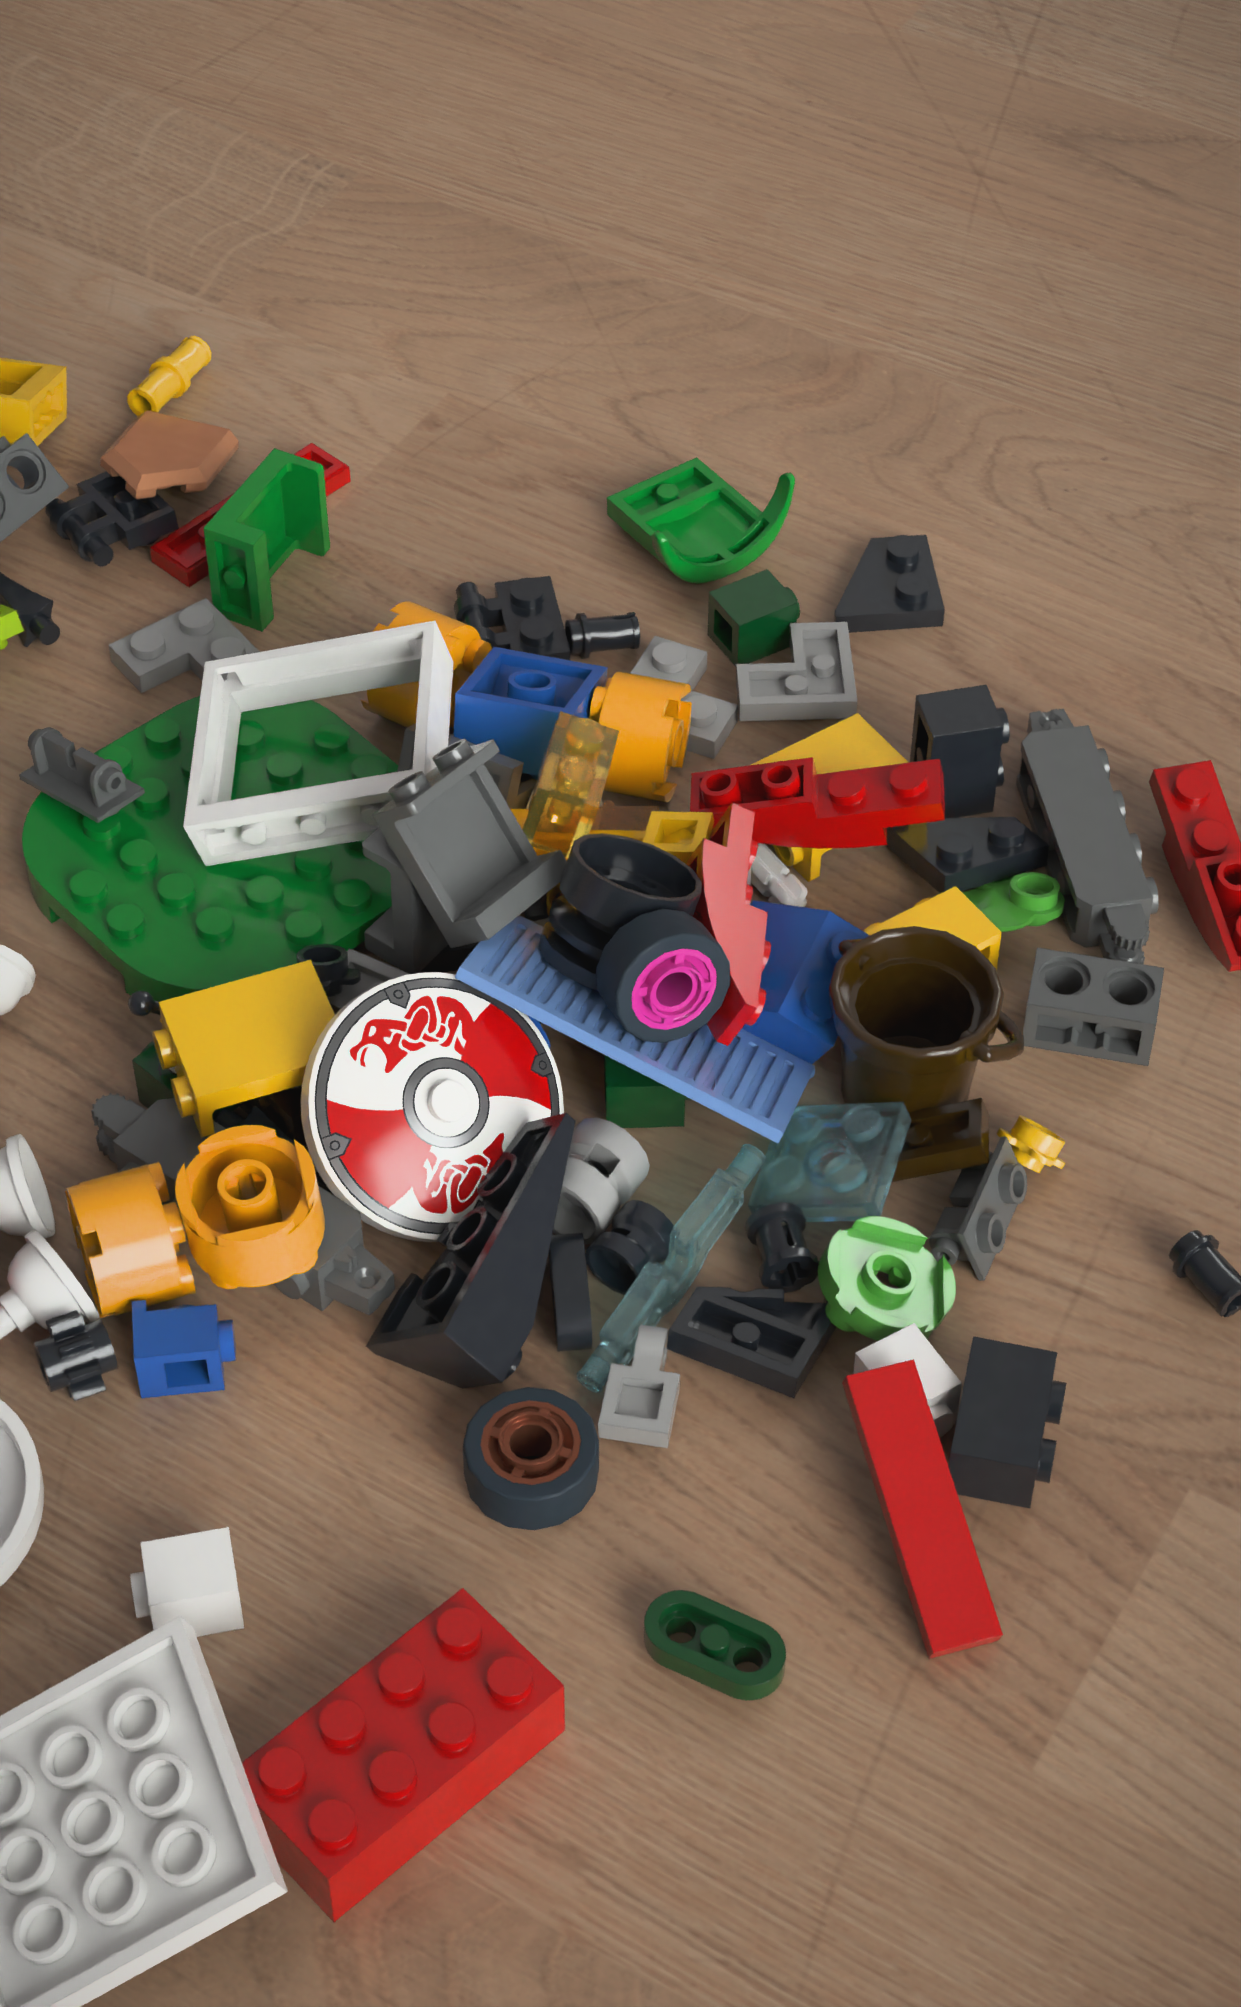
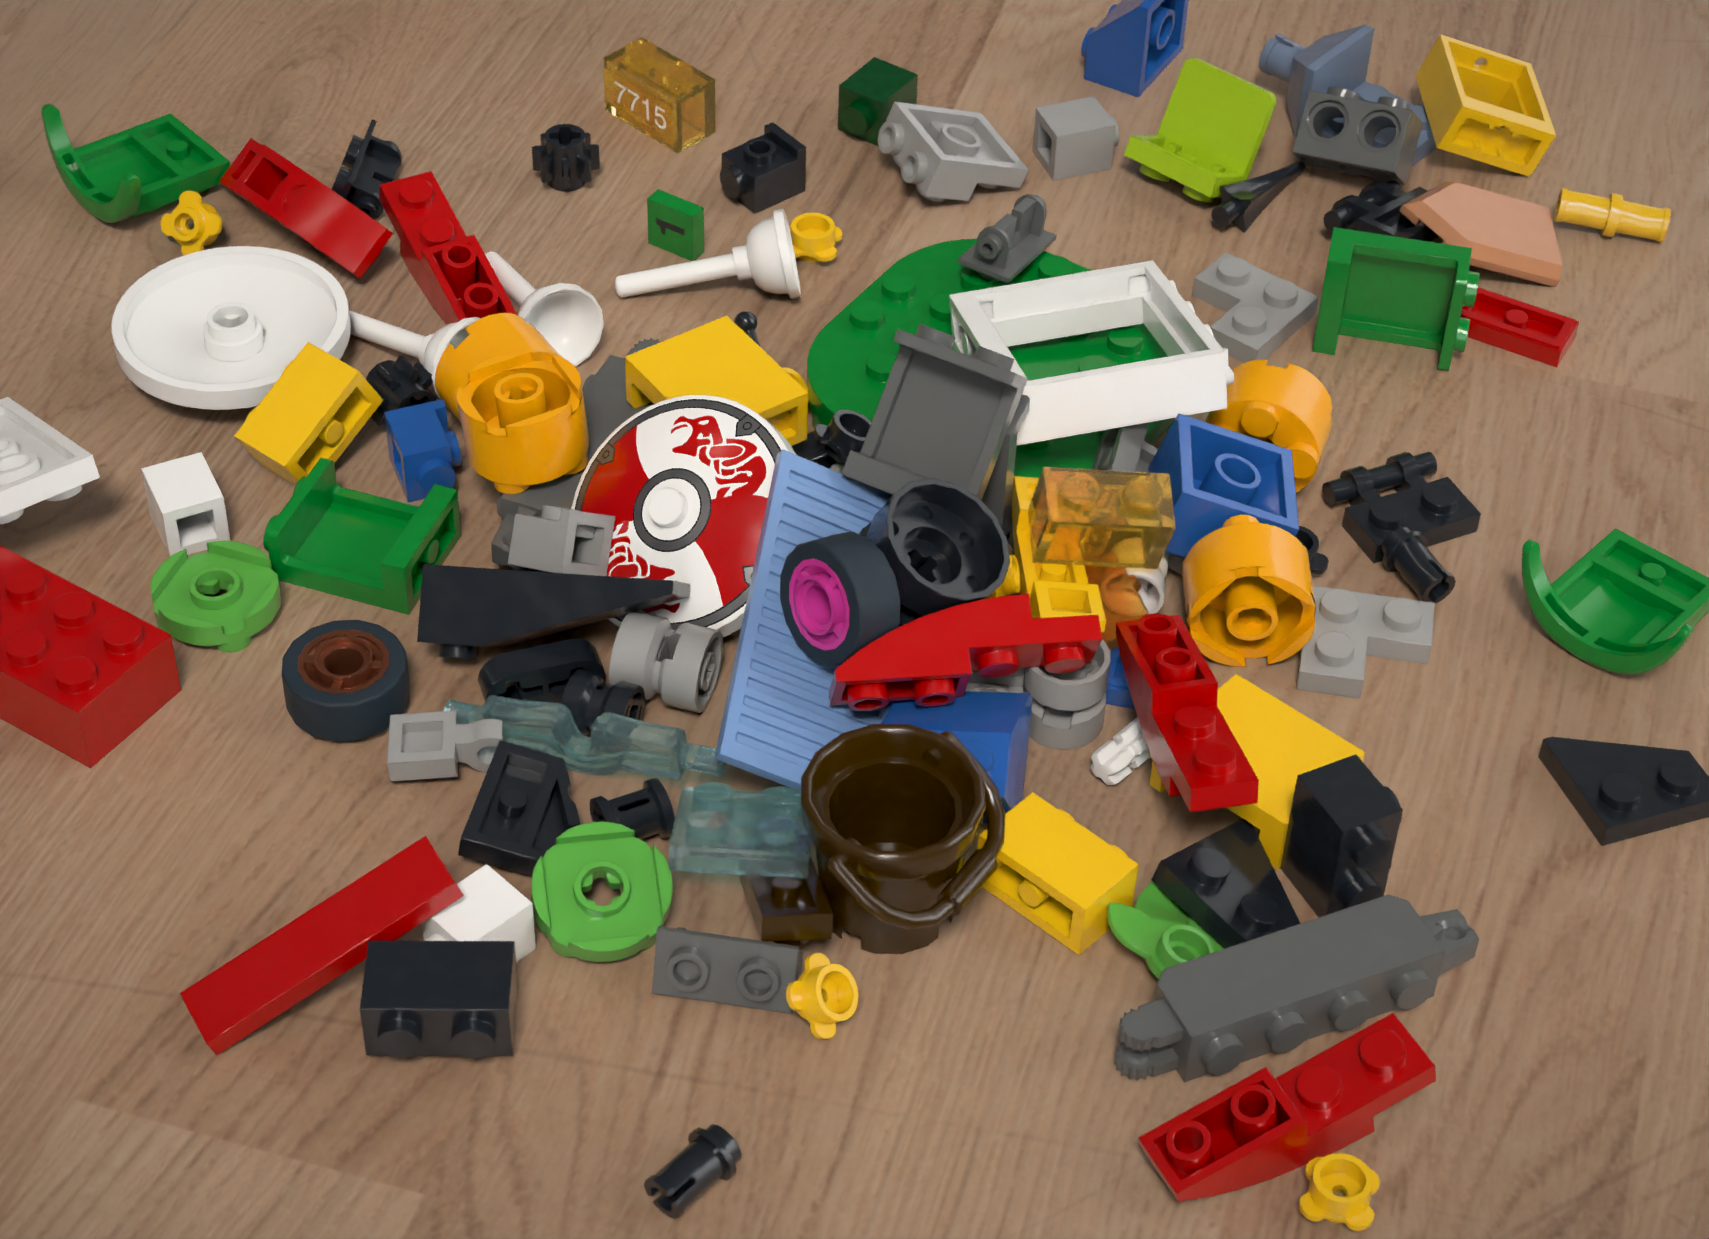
camera: 75 degrees right, 5 degrees down
(106, 1436) = (308, 414): none -> yellow brick
(303, 1422) = (360, 541): none -> green panel
(353, 1610) = (225, 621): none -> bright green plate
(420, 1224) = (562, 541): none -> light grey brick
(718, 1644) = (161, 848): dark green plate -> none
(752, 617) = (1497, 669): dark green brick -> none
(812, 686) = (1432, 739): light grey plate -> none
(1092, 1006) = (1037, 1023): dark grey brick -> none

